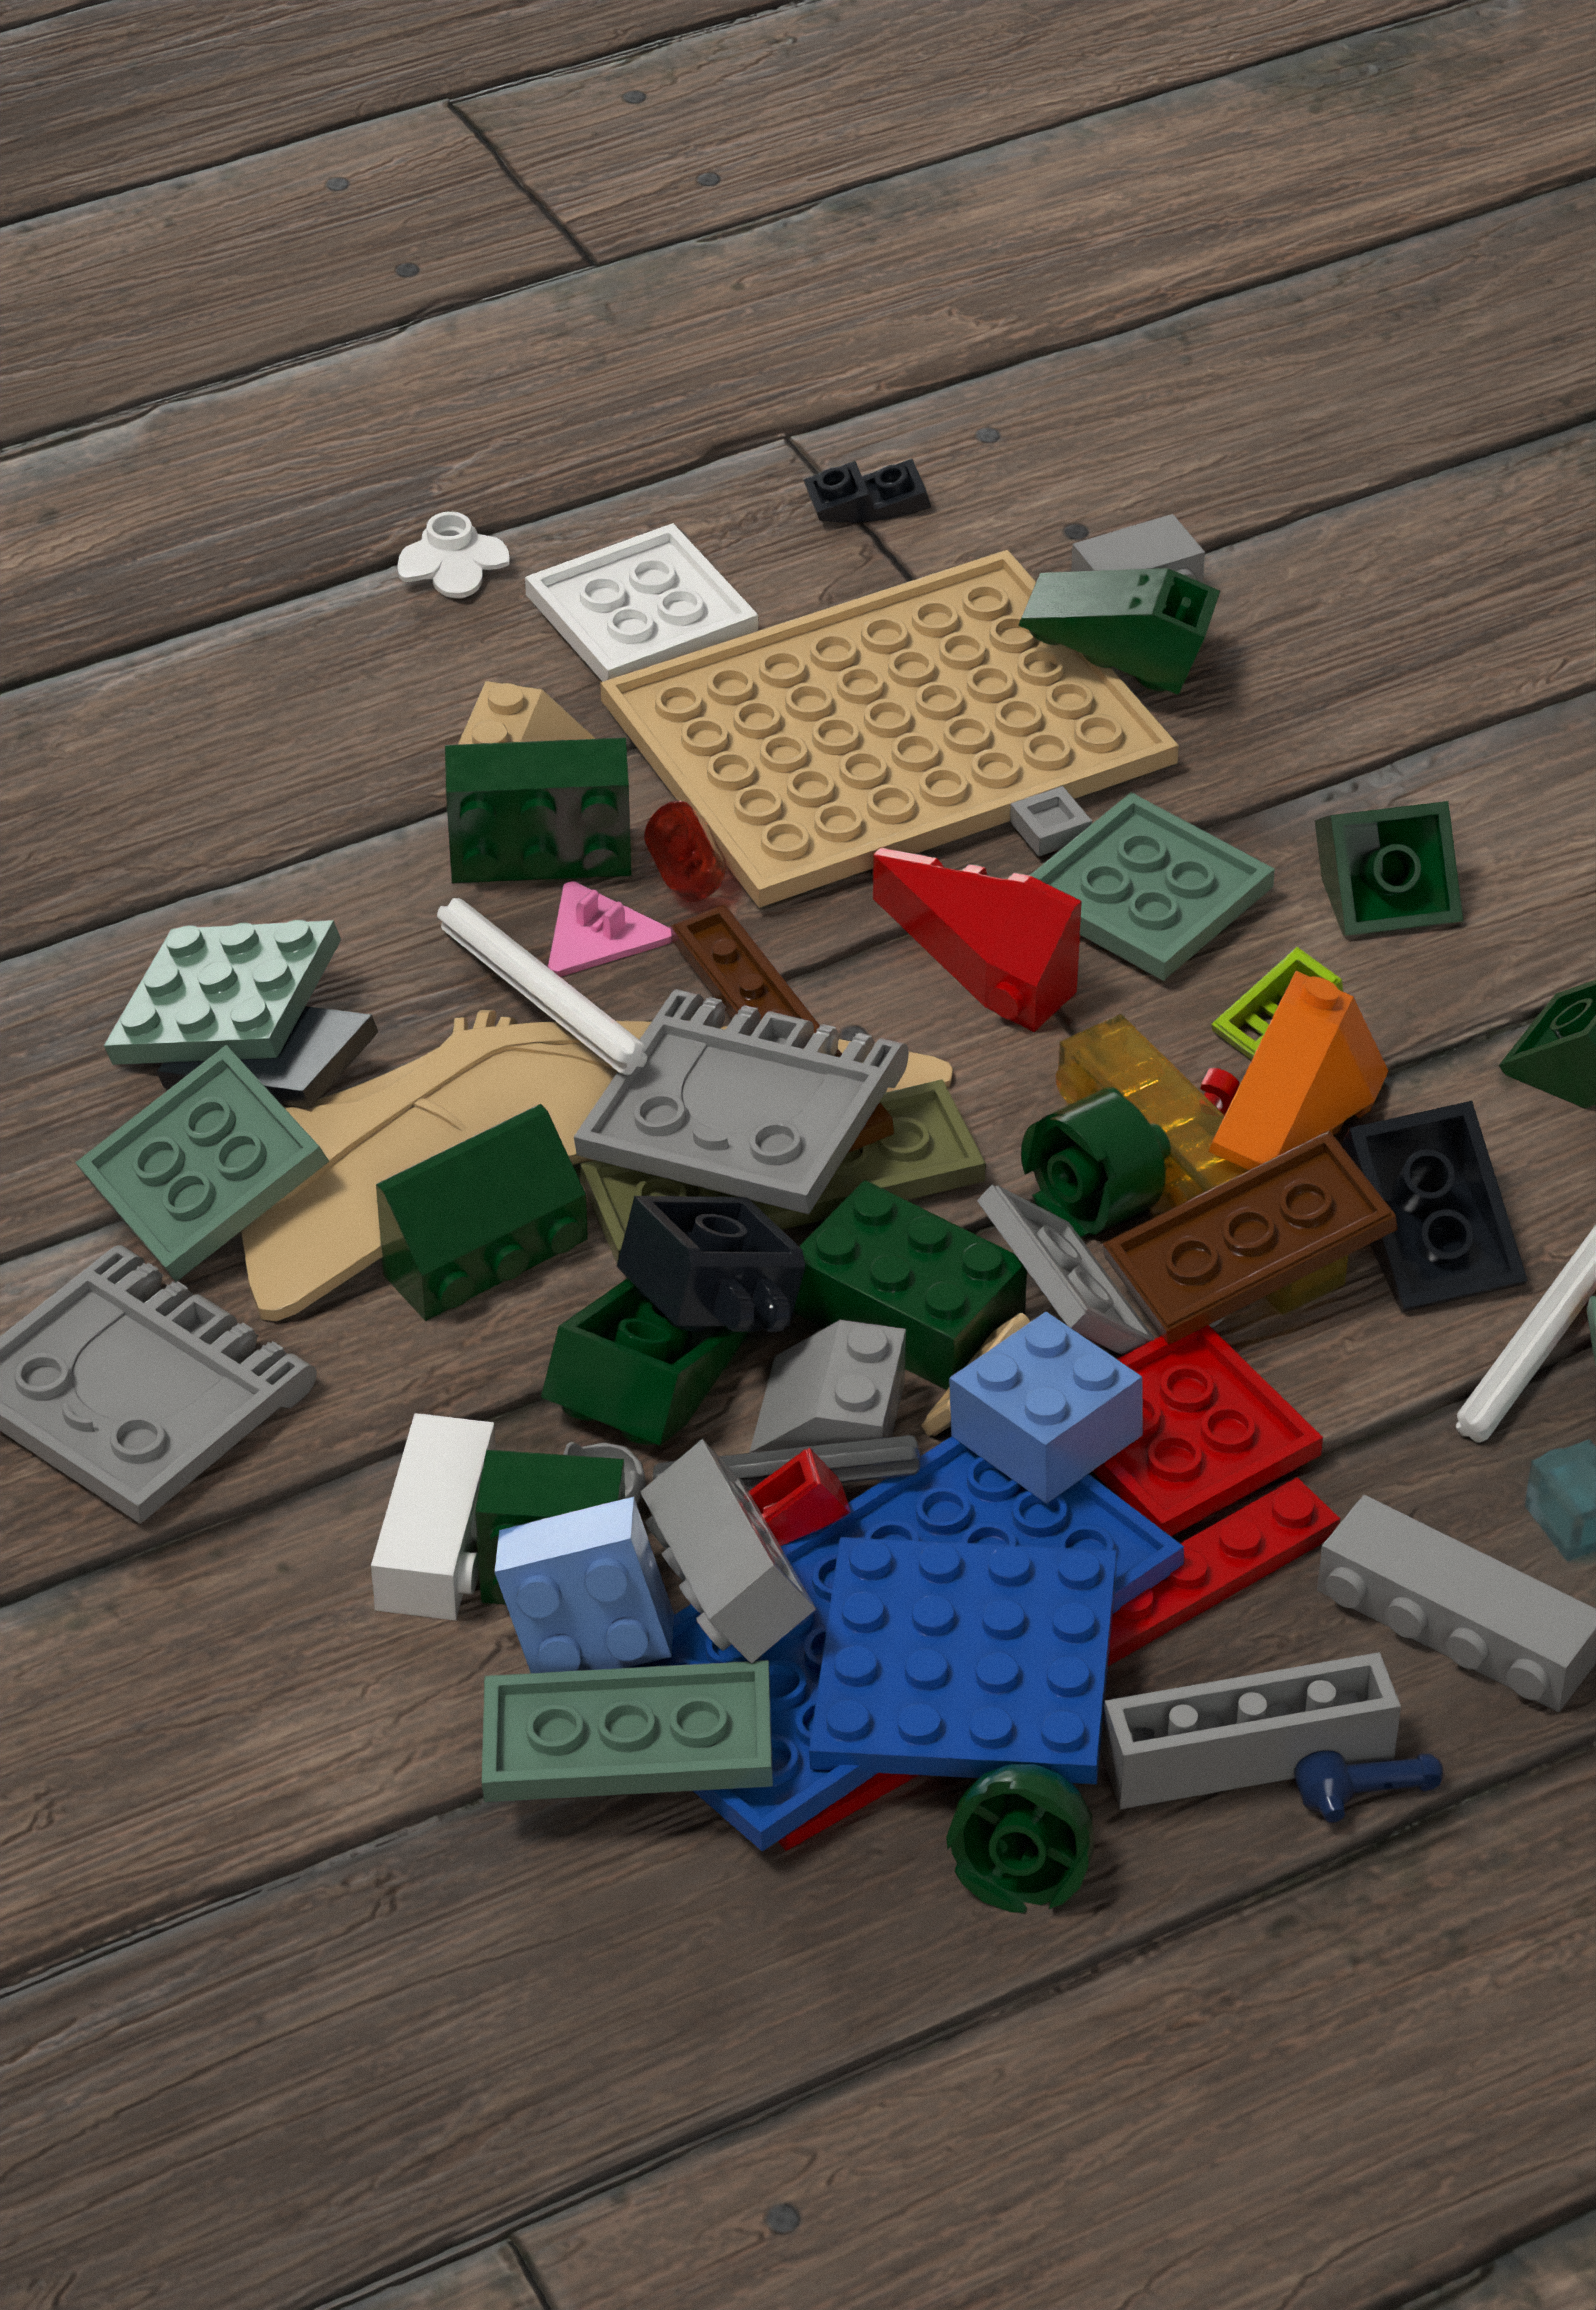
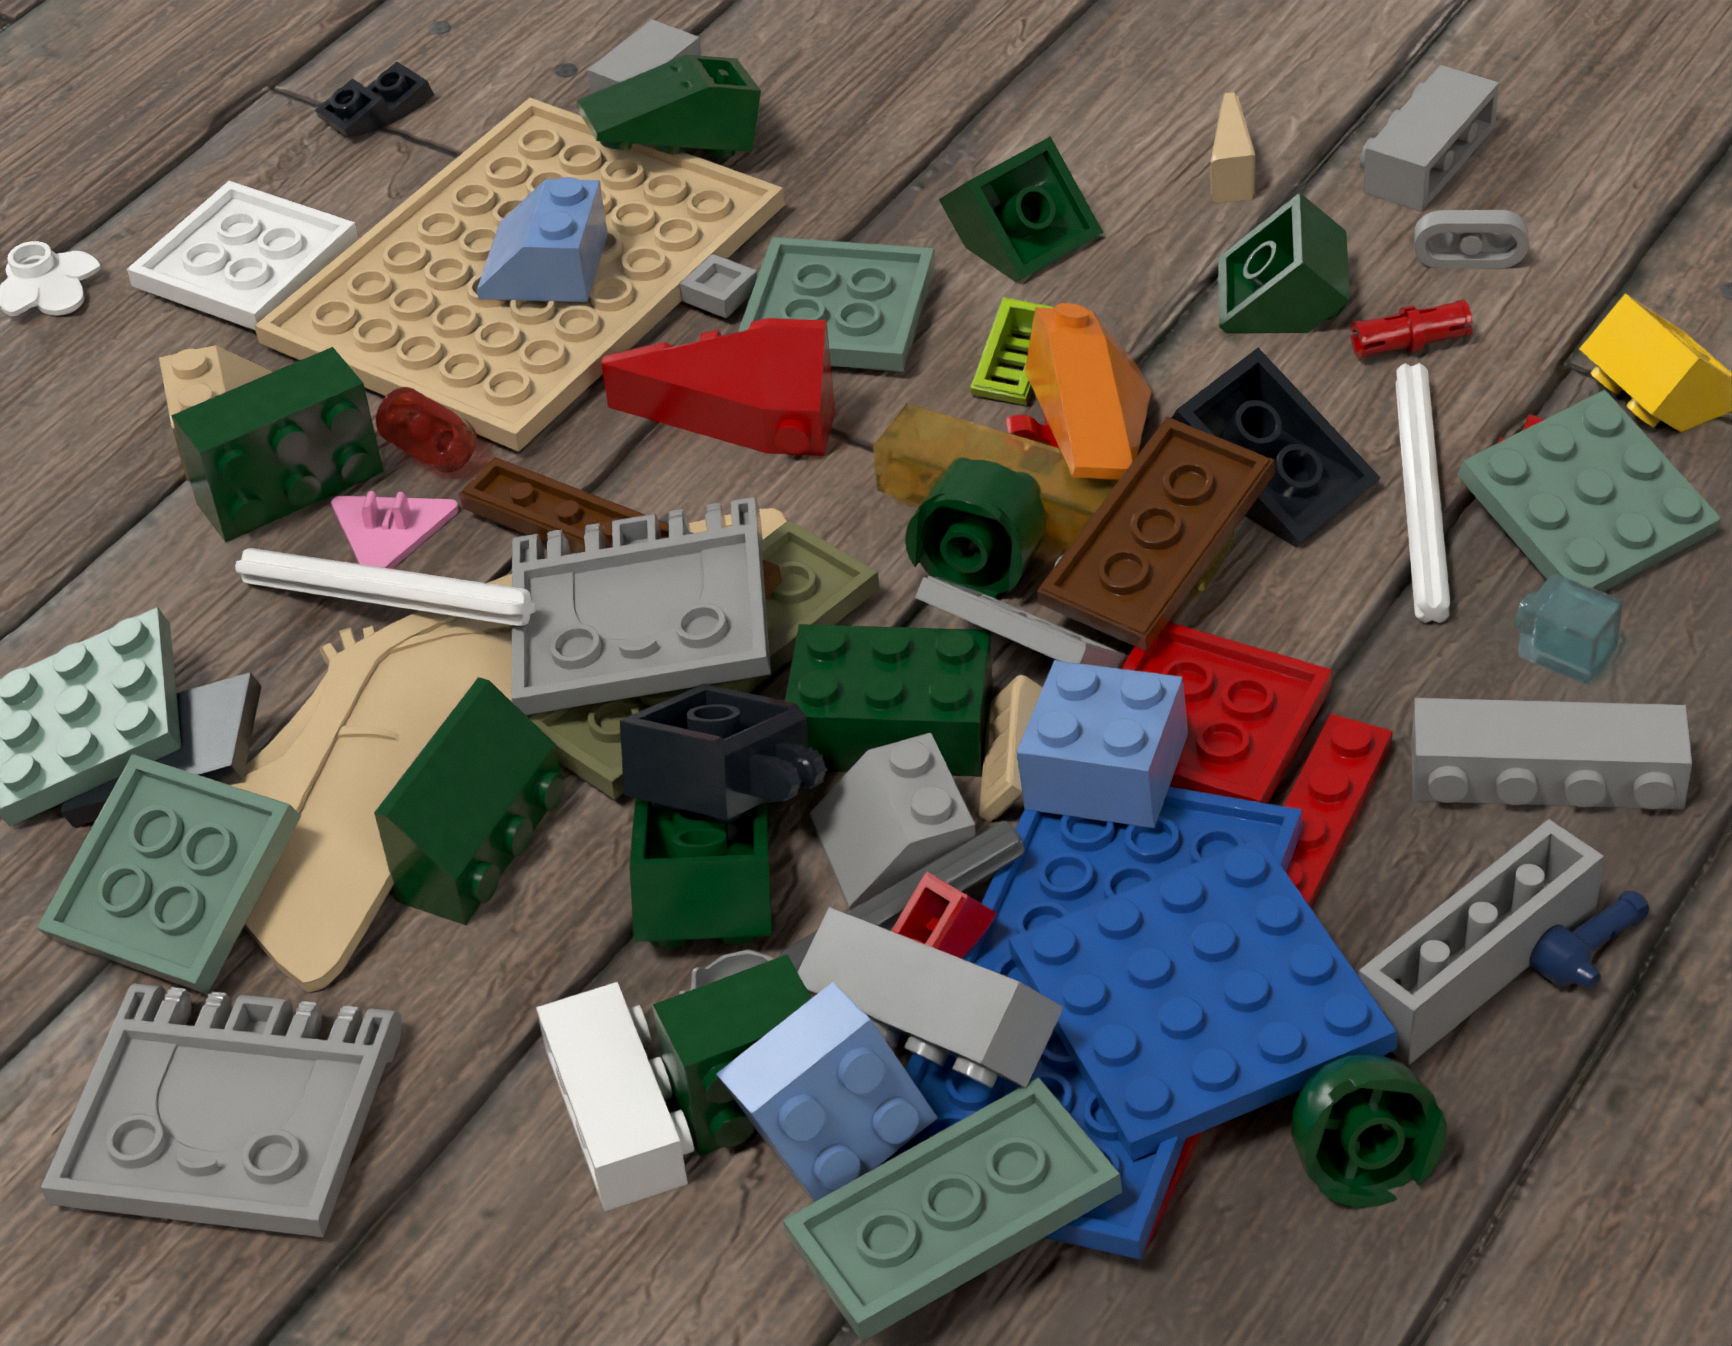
camera: 25 degrees left, 0 degrees up
(909, 716) = (548, 244): none -> medium blue slope

